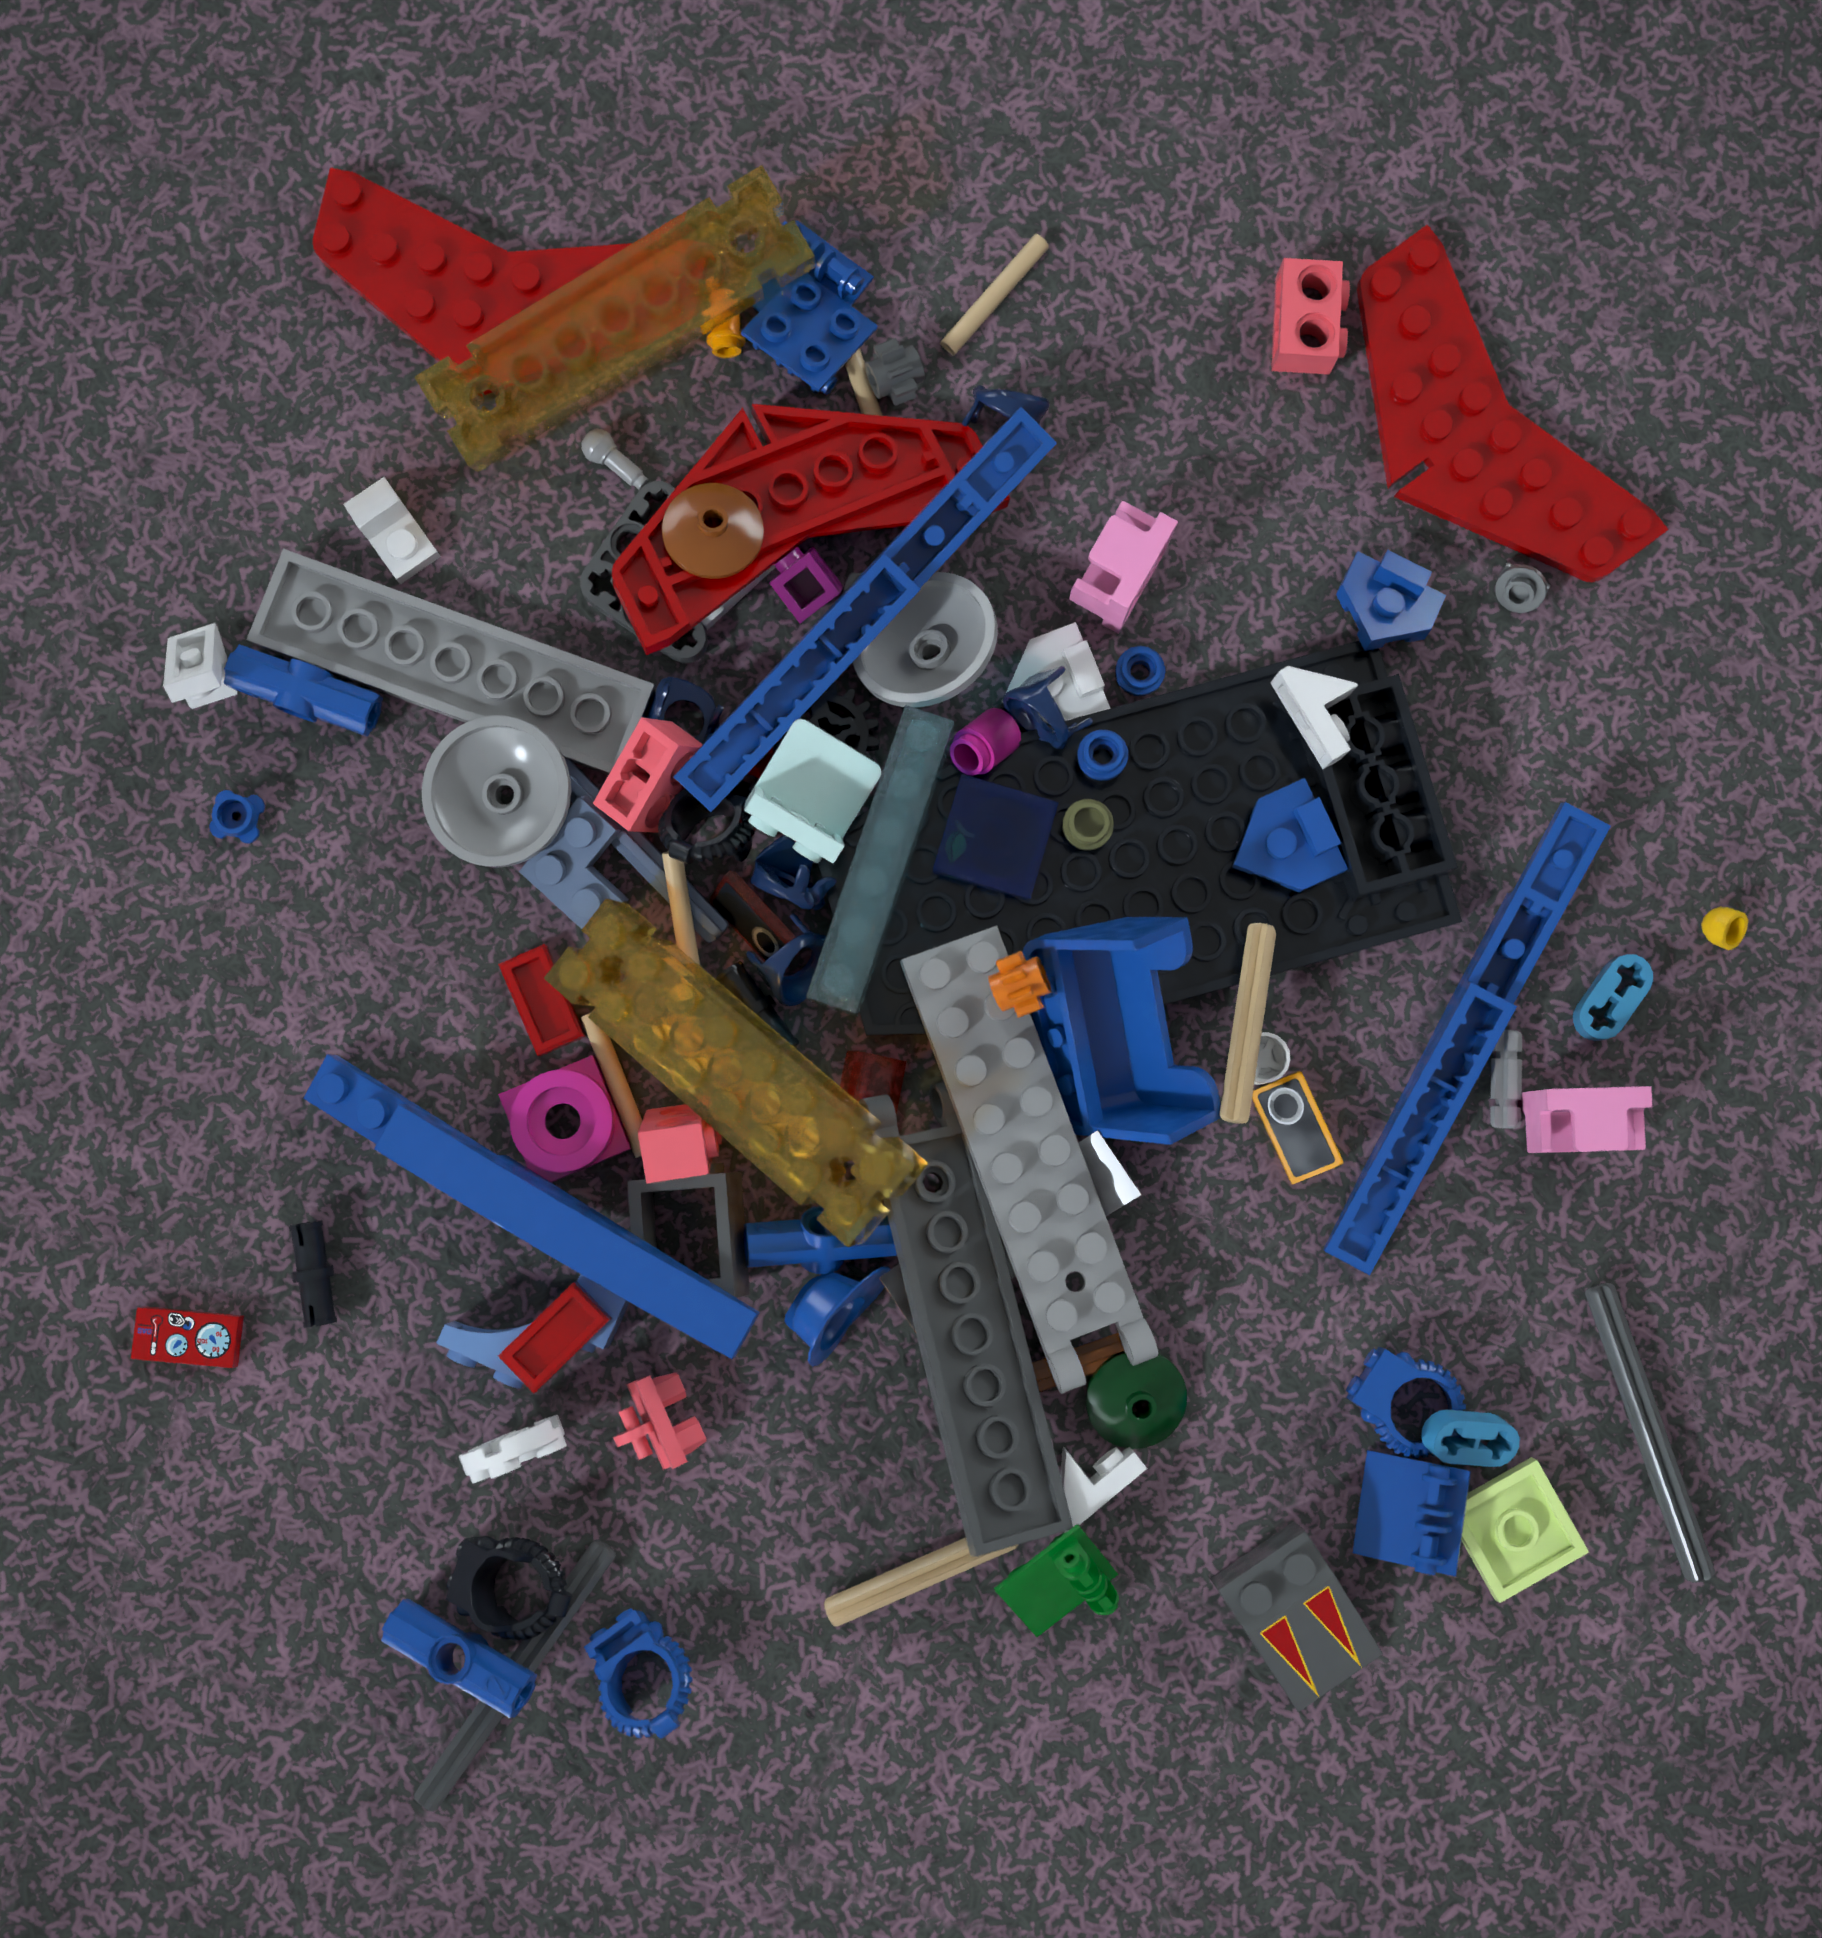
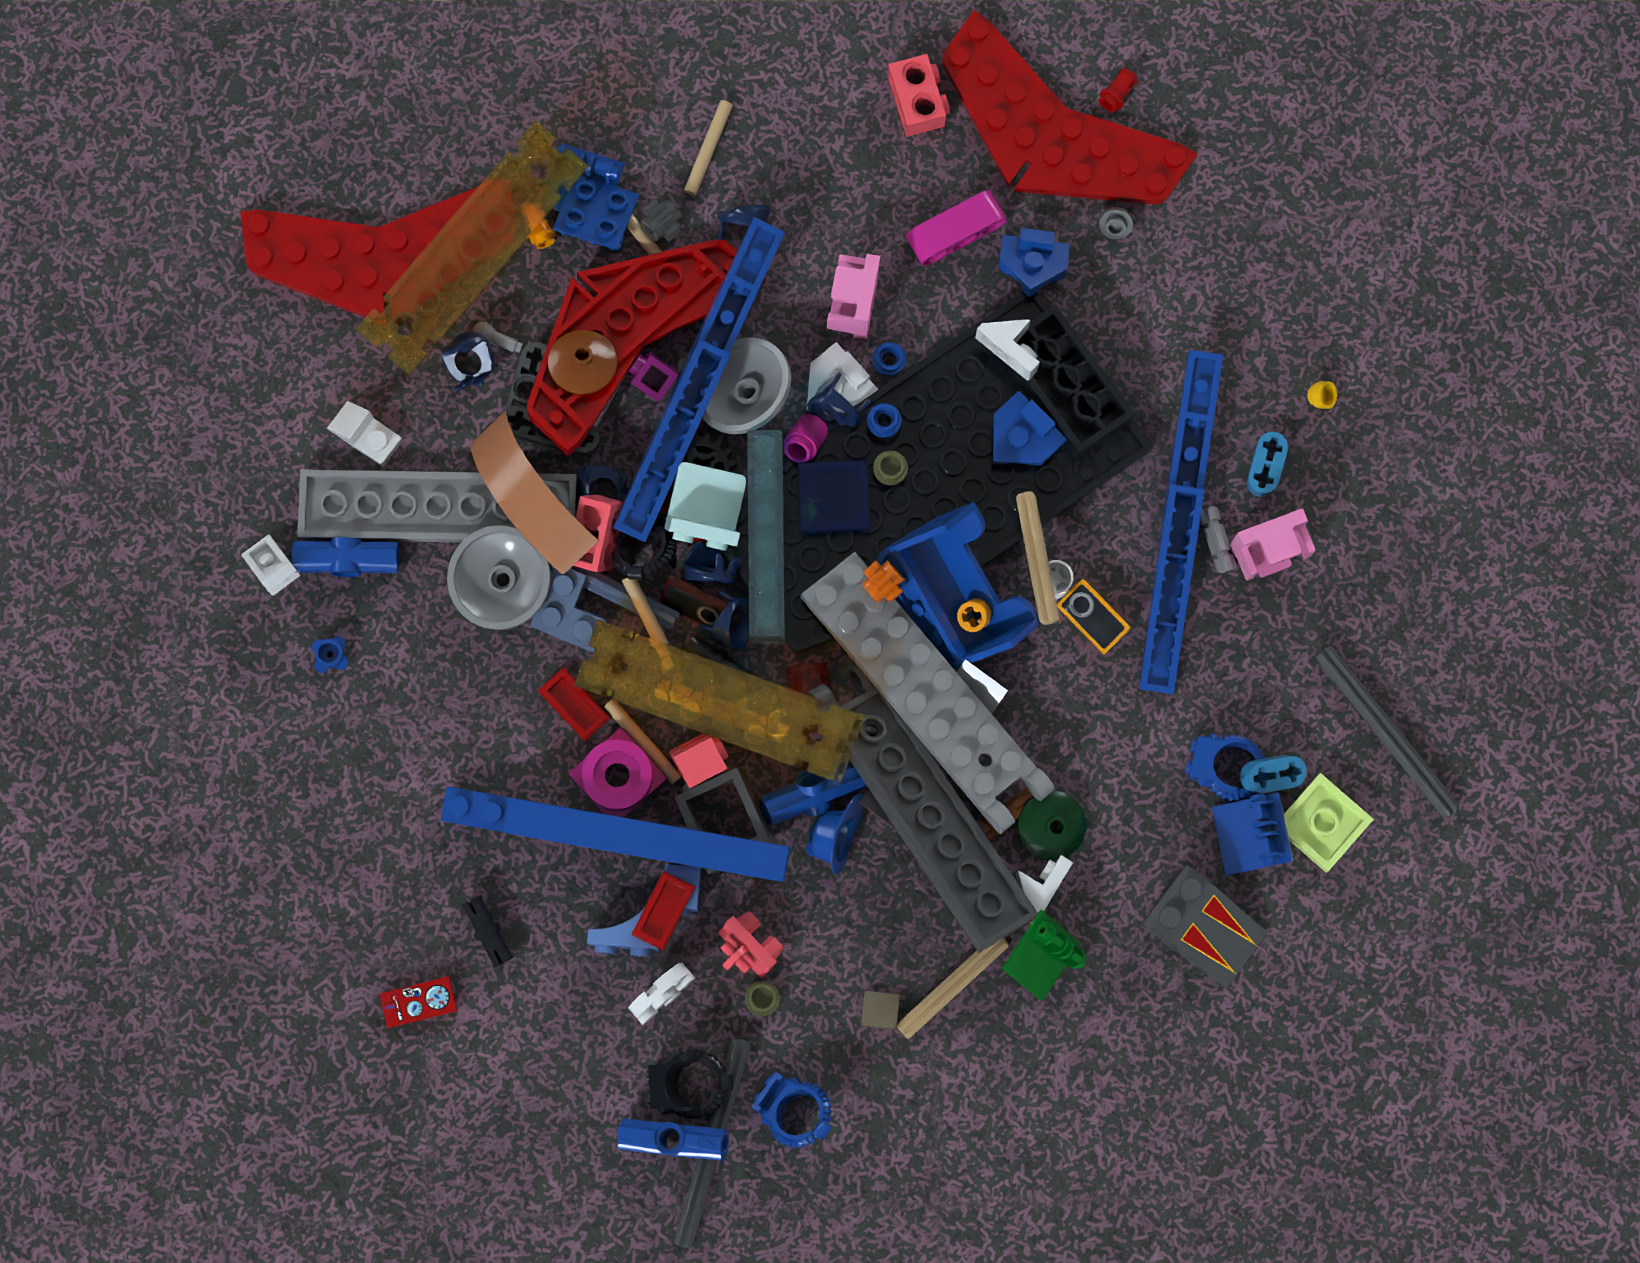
camera: 20 degrees left, 5 degrees down
(568, 698) = (528, 499): none -> nougat sticker
(581, 456) = (465, 342): none -> dark blue piece
(654, 1498) = (762, 998): none -> olive plate
(808, 1573) = (880, 1010): none -> dark tan slope
(1121, 1080) = (978, 606): none -> light orange bush
(1296, 519) = (956, 228): none -> dark pink beam
(1588, 404) = (1113, 96): none -> red pin

